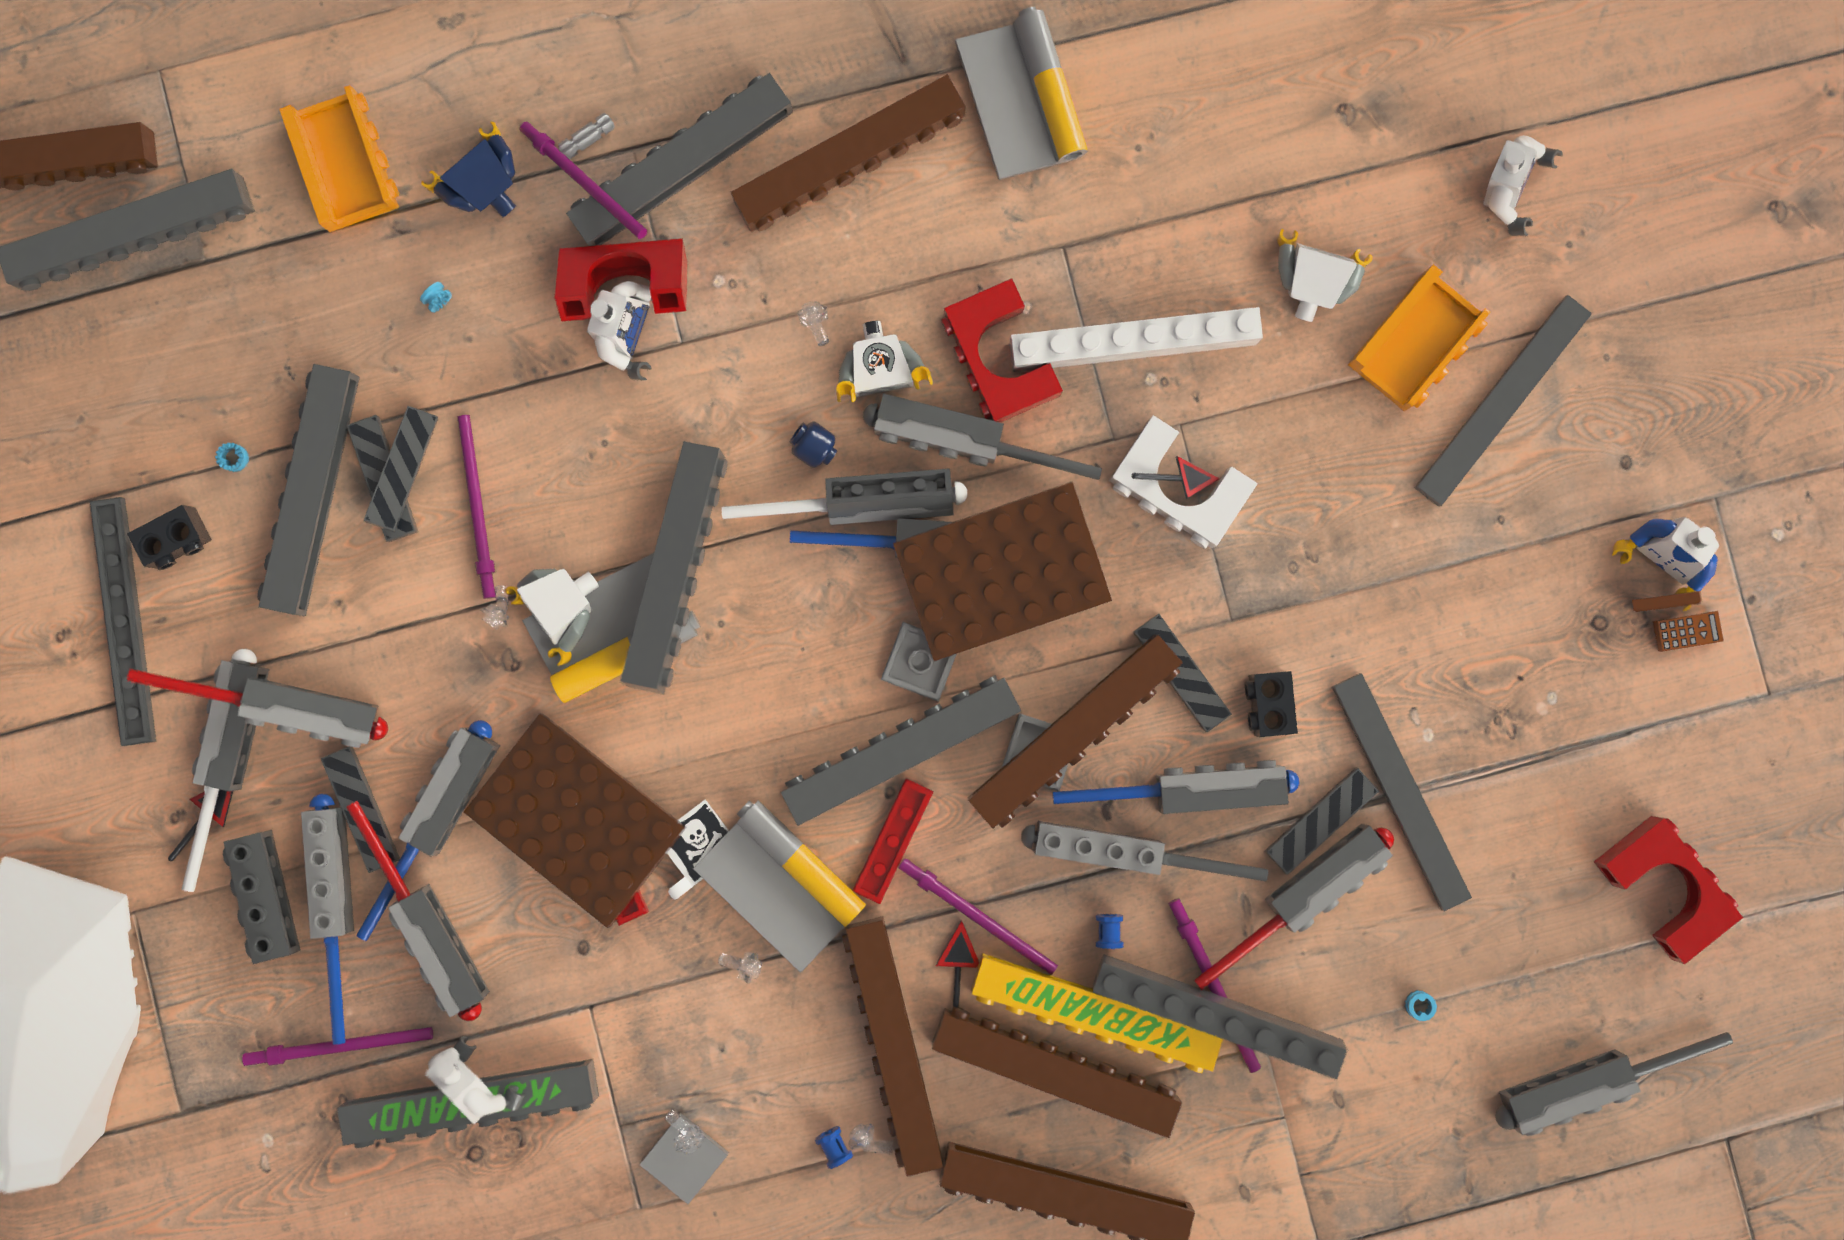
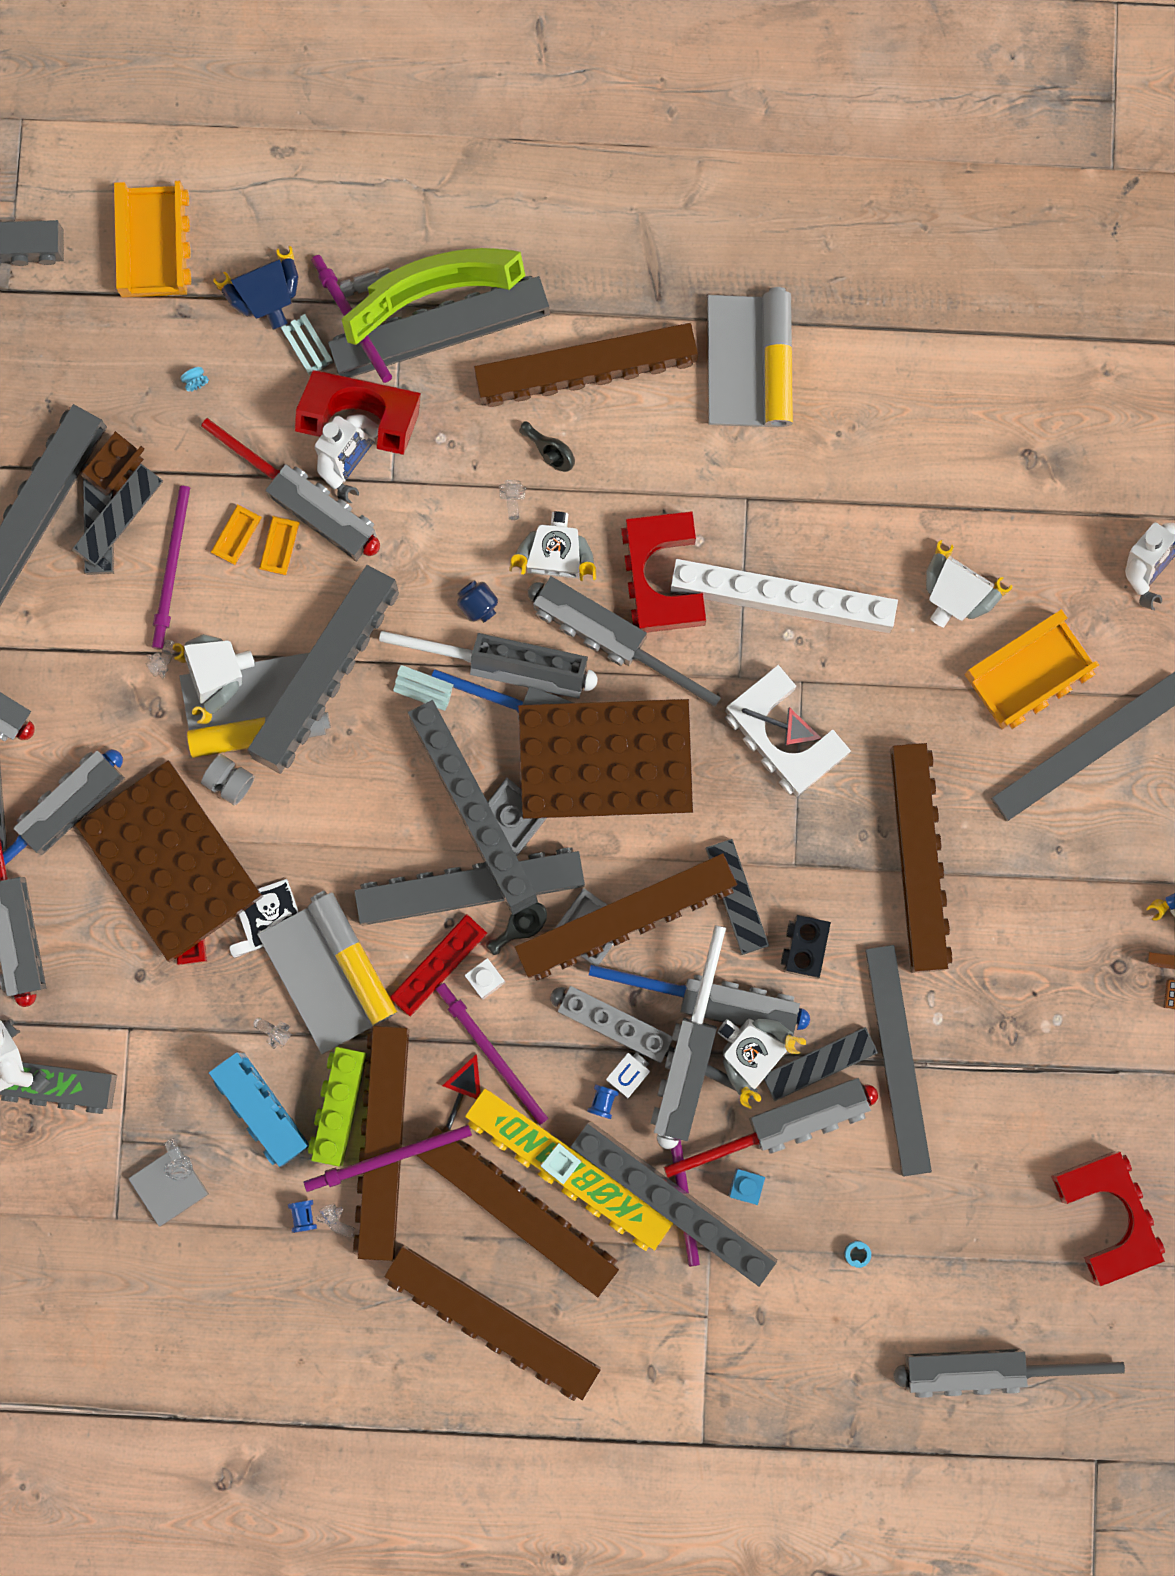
camera: 20 degrees right, 5 degrees down
(376, 415) = (111, 464): none -> reddish brown bracket
(526, 206) = (295, 325): none -> light aqua tile
(534, 450) = (236, 534): none -> light orange tile
(584, 448) = (279, 545): none -> light orange tile
(600, 392) = (309, 501): none -> piece
(609, 715) = (227, 779): none -> light grey wheel
(650, 108) = (429, 275): none -> lime arch
(754, 1051) = (259, 1109): none -> dark azure wedge
(785, 554) = (421, 691): none -> light aqua tile
(835, 1017) = (338, 1107): none -> lime brick
(842, 257) = (552, 450): none -> pearl dark grey piece
(855, 1099) = (334, 1177): none -> magenta bar
(878, 666) = (473, 807): none -> dark grey brick
(947, 841) = (485, 979): none -> white brick
(967, 771) = (520, 926): none -> pearl dark grey piece
(1088, 1012) = (561, 1163): none -> light aqua tile
(1127, 894) = (629, 1074): none -> white brick
(1189, 865) = (688, 1061): none -> piece
(1255, 833) = (754, 1052): none -> torso
(1286, 973) = (746, 1186): none -> dark azure brick
(1361, 574) = (919, 858): none -> reddish brown brick

